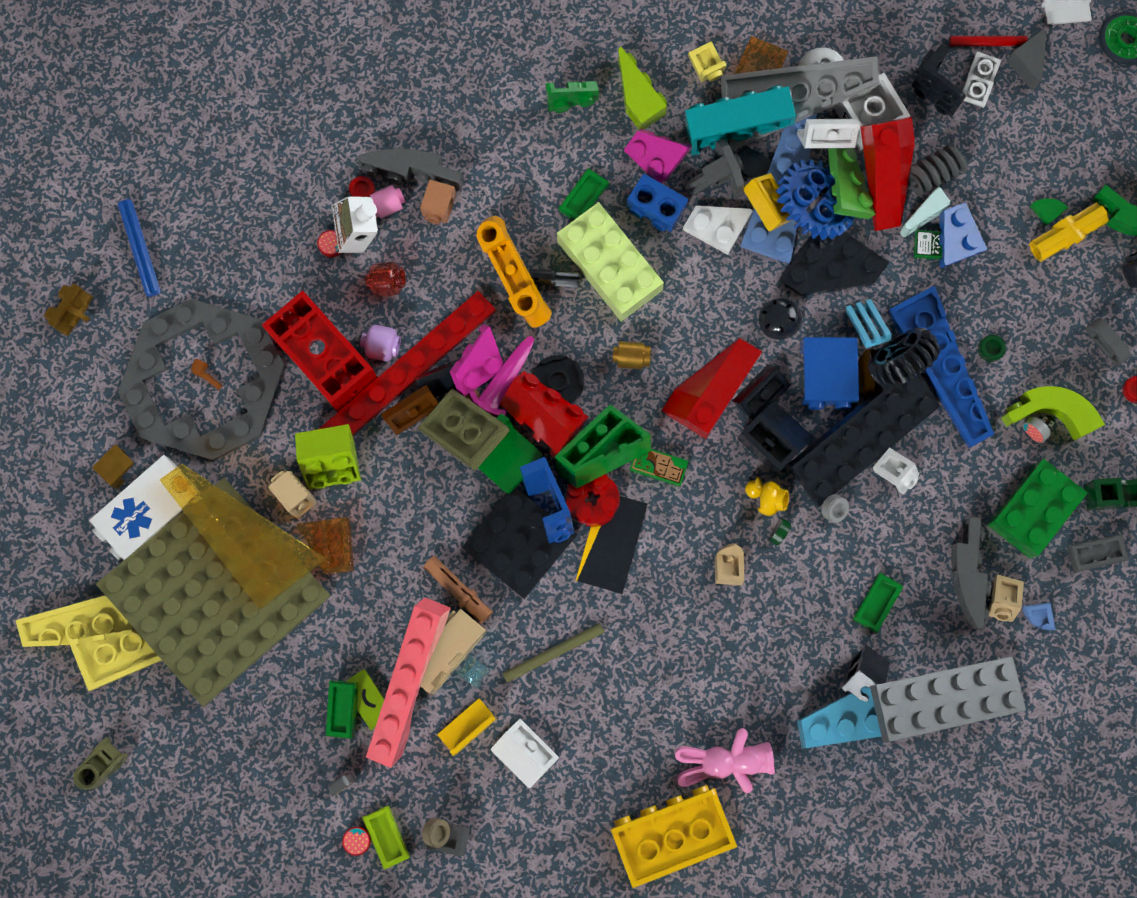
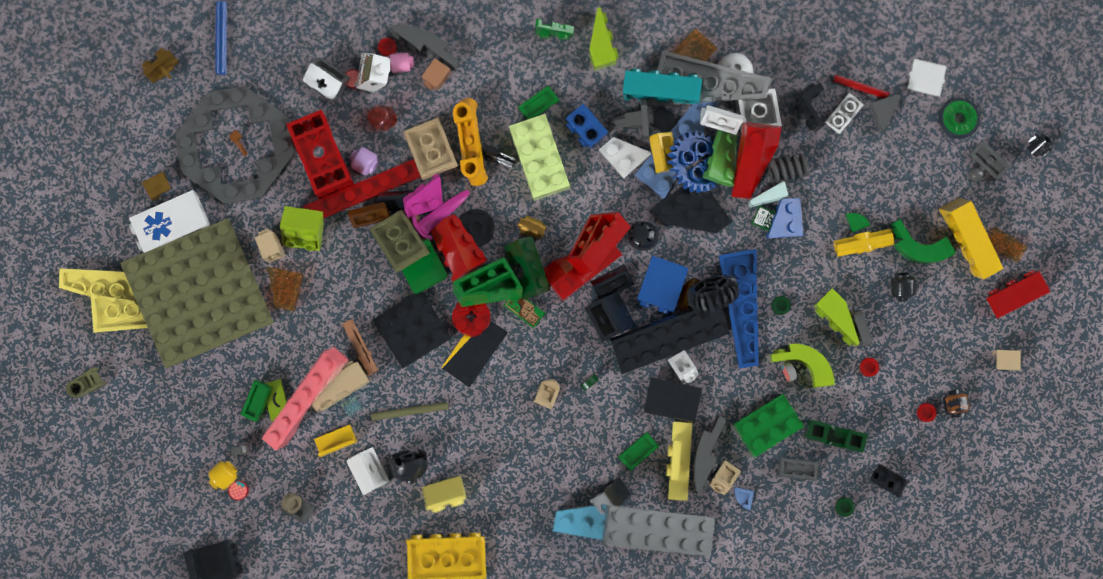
camera: 15 degrees right, 5 degrees up
(250, 546) = (230, 272): clear yellow wing -> none
(306, 258) = (326, 79): none -> brick
(328, 827) = (222, 475): none -> yellow head
(386, 837) = (258, 494): lime tile -> none
(463, 297) = (430, 148): none -> tan tile
(538, 479) = (438, 292): blue panel -> none
(579, 727) = (408, 466): none -> black cylinder
(641, 747) = (444, 493): none -> light yellow slope
(656, 154) = (598, 91): dark pink wing -> none
(660, 420) = (534, 279): none -> dark green arch
(707, 62) = (657, 37): light yellow bracket -> none
(720, 762) = (494, 521): bright pink animal -> none
(726, 340) = (597, 240): none -> red wedge
(771, 496) = (592, 357): yellow animal -> none
(835, 508) = (632, 379): light grey tile -> none
(862, 310) = (700, 247): medium azure tile -> none
(898, 518) = (672, 400): none -> black piece
(938, 597) = (680, 461): none -> light yellow bracket
(1070, 332) = (836, 311): none -> lime slope

